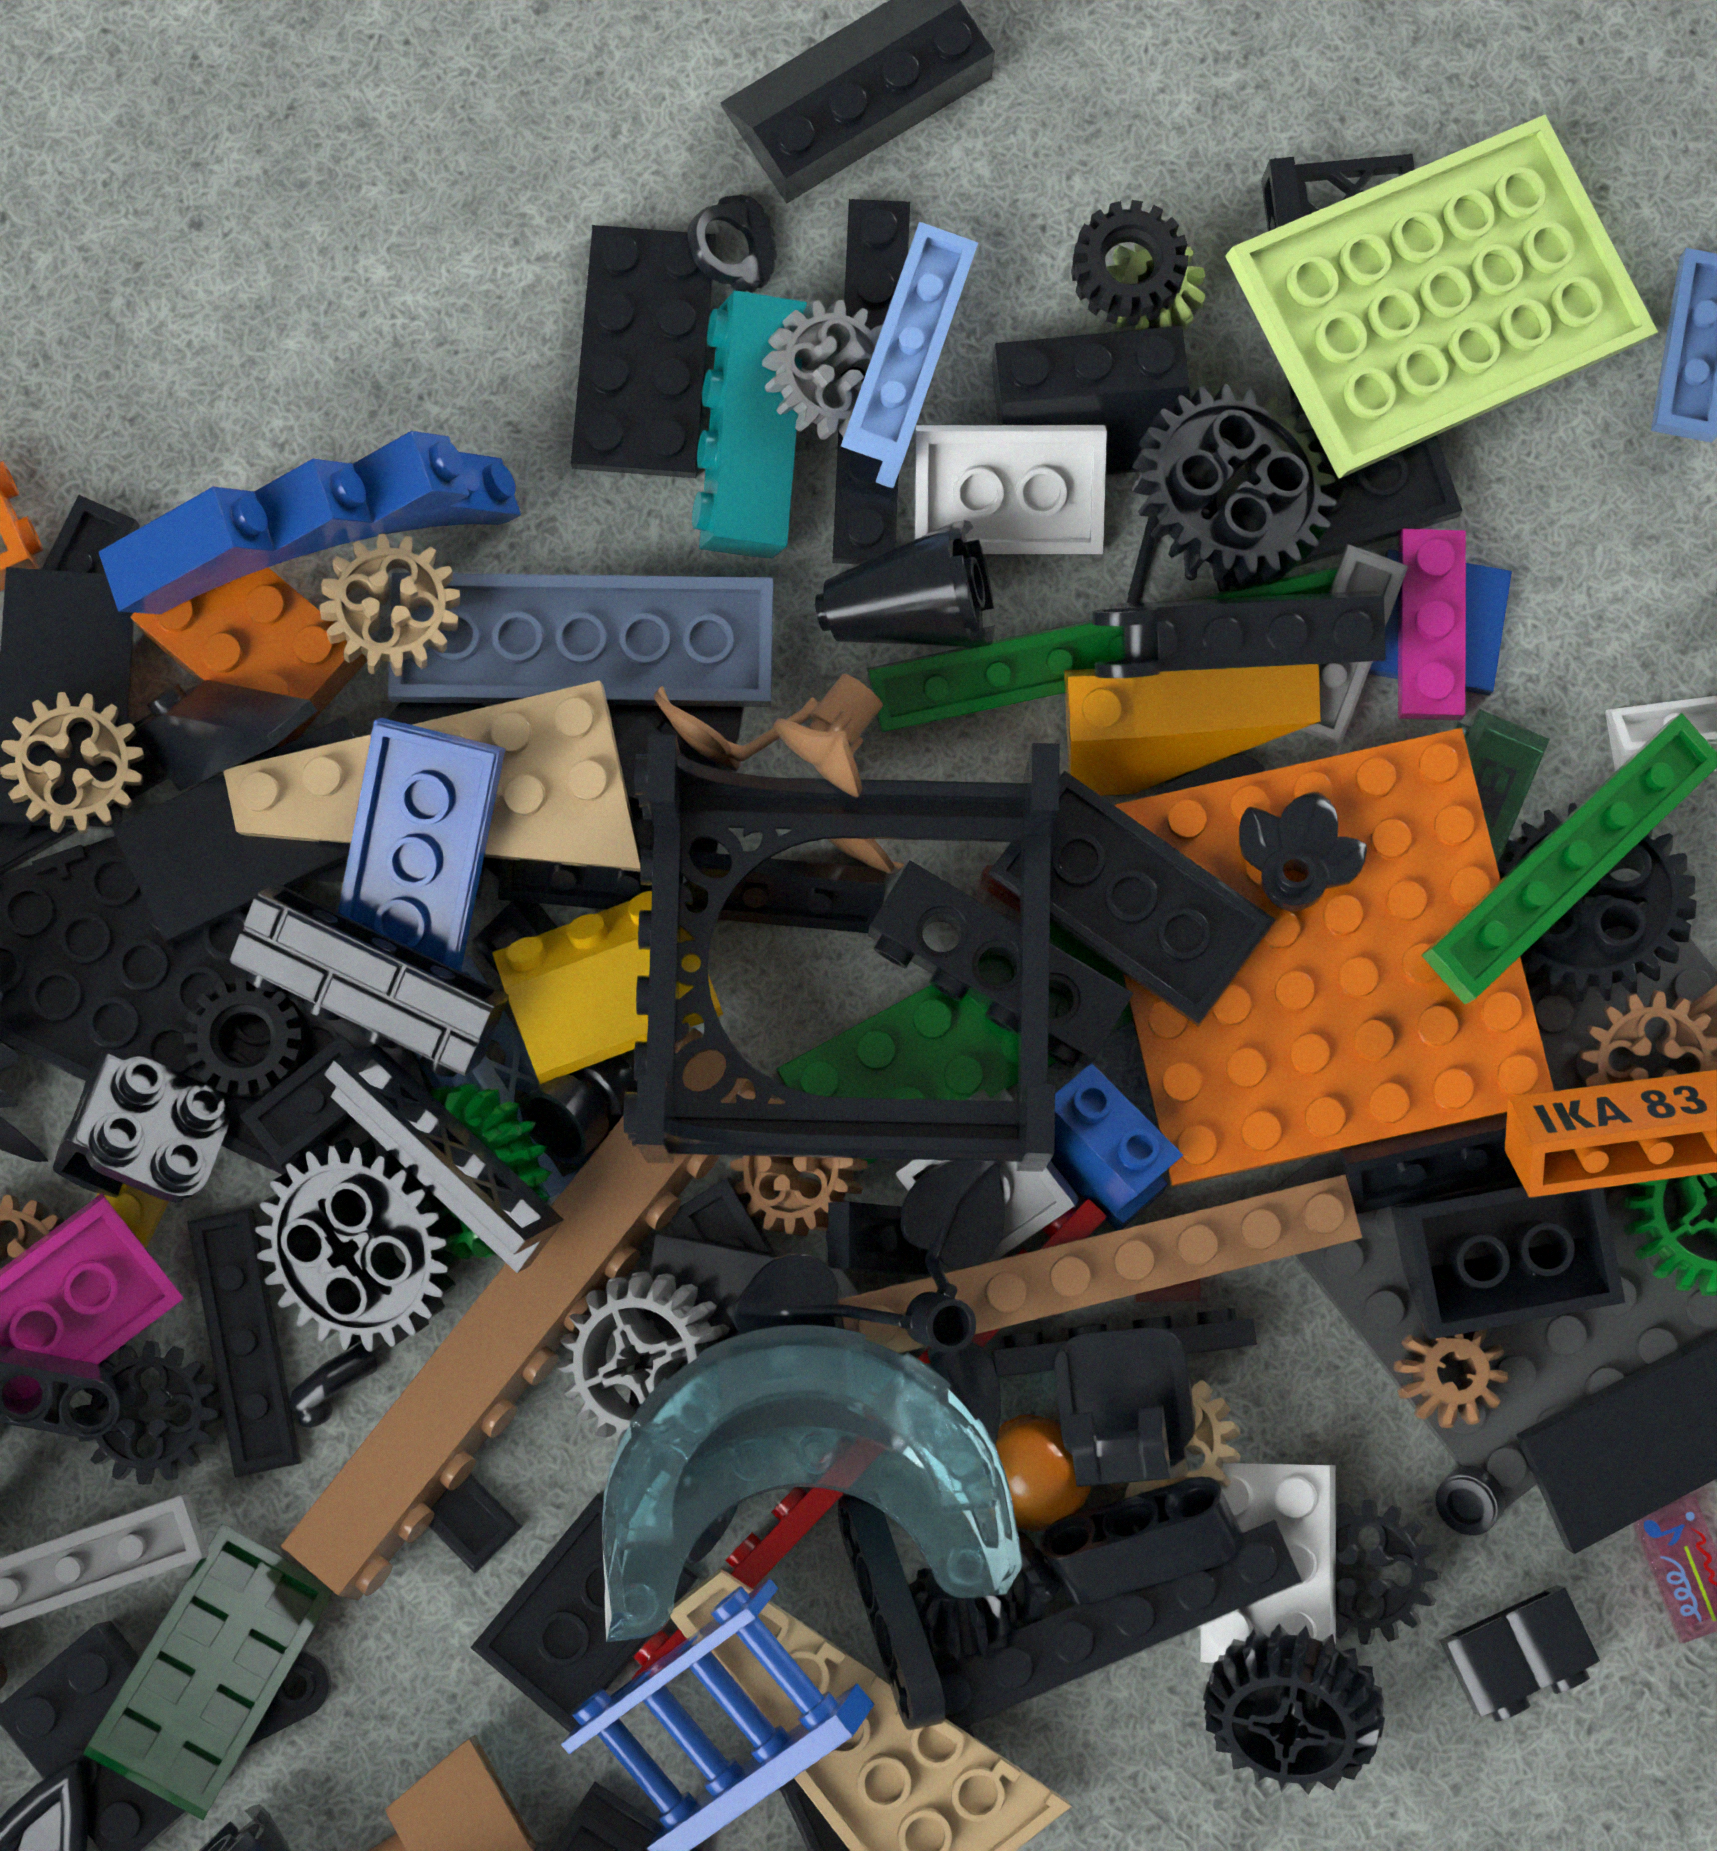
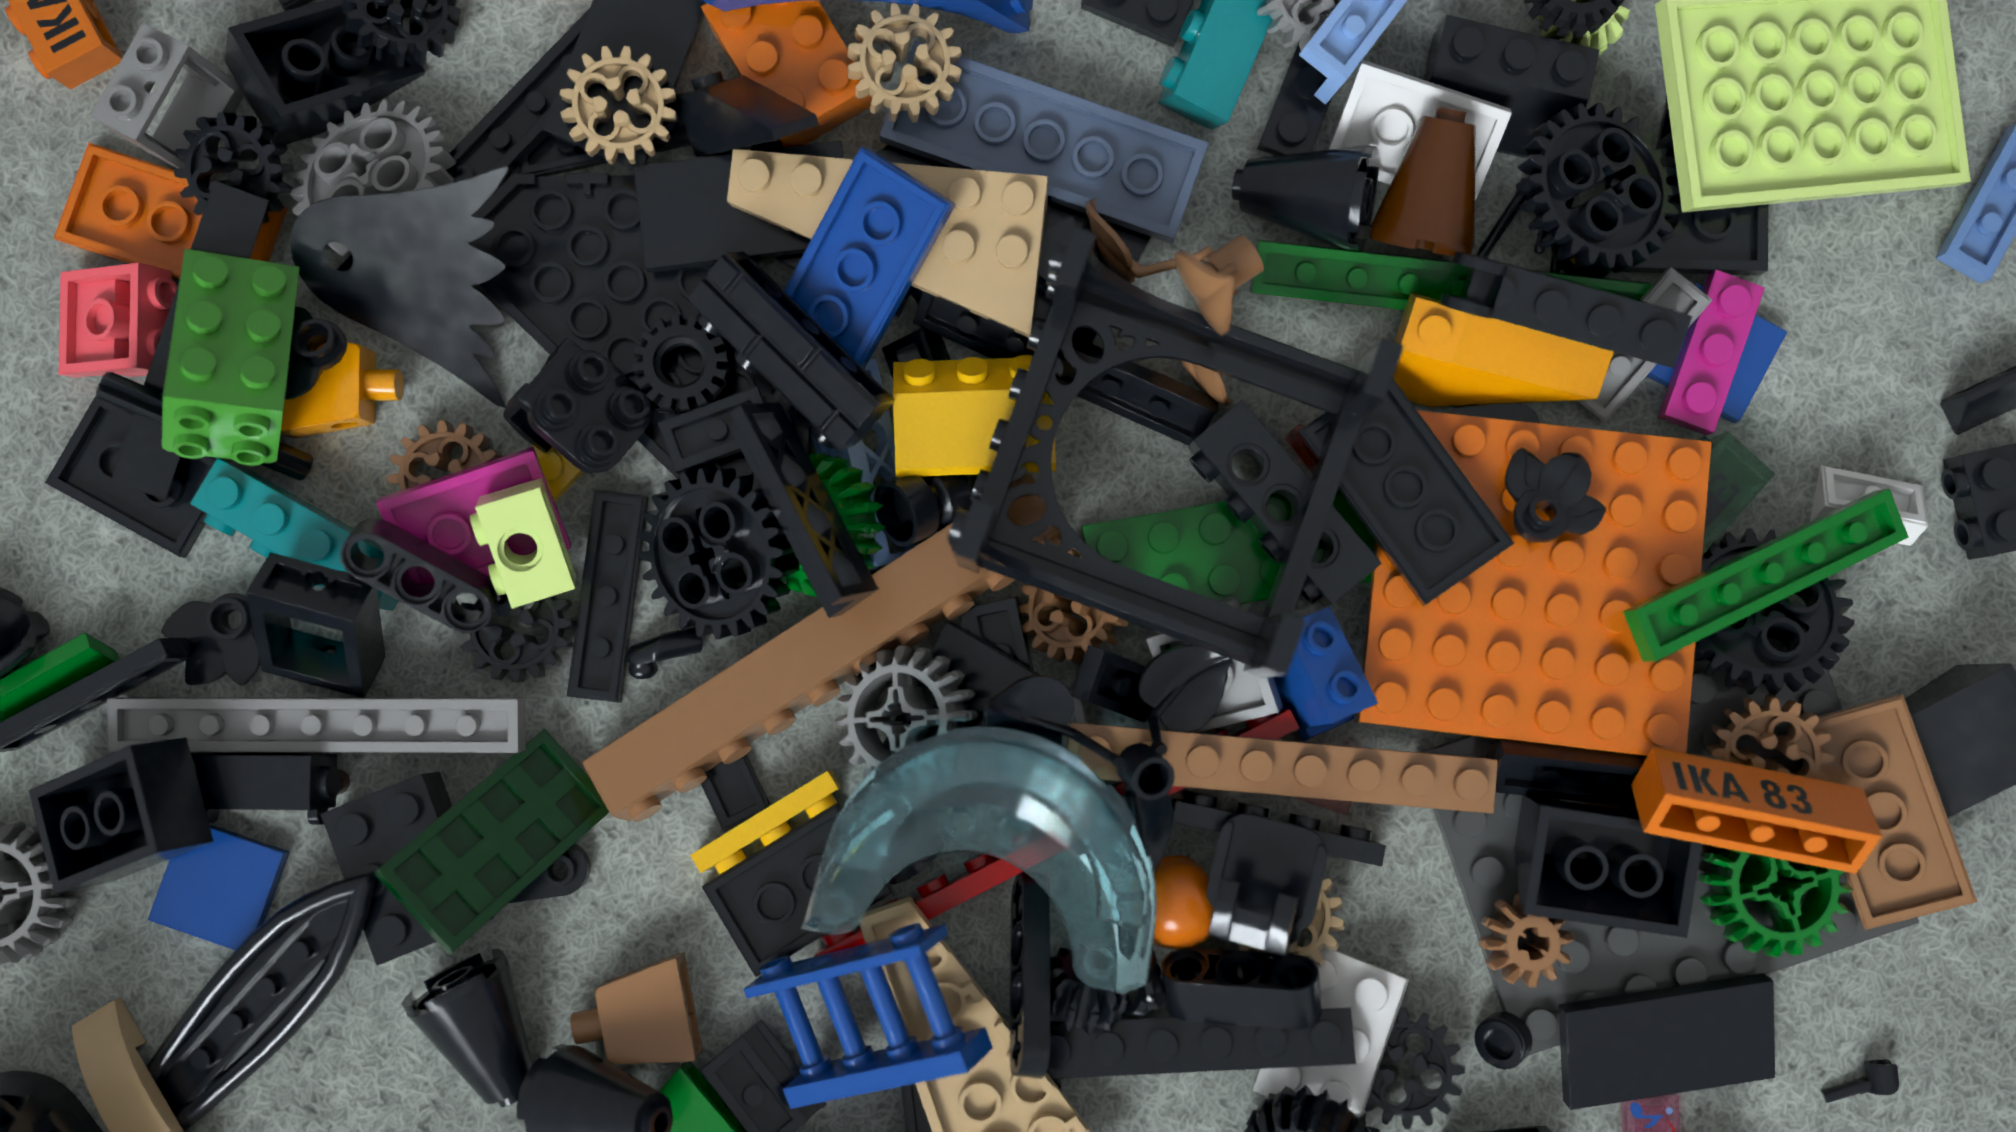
camera: 20 degrees right, 5 degrees up
(119, 1270) = (527, 511): none -> yellowish green brick
(525, 1544) = (768, 824): none -> yellow plate
(1047, 547) = (1433, 189): none -> reddish brown cone

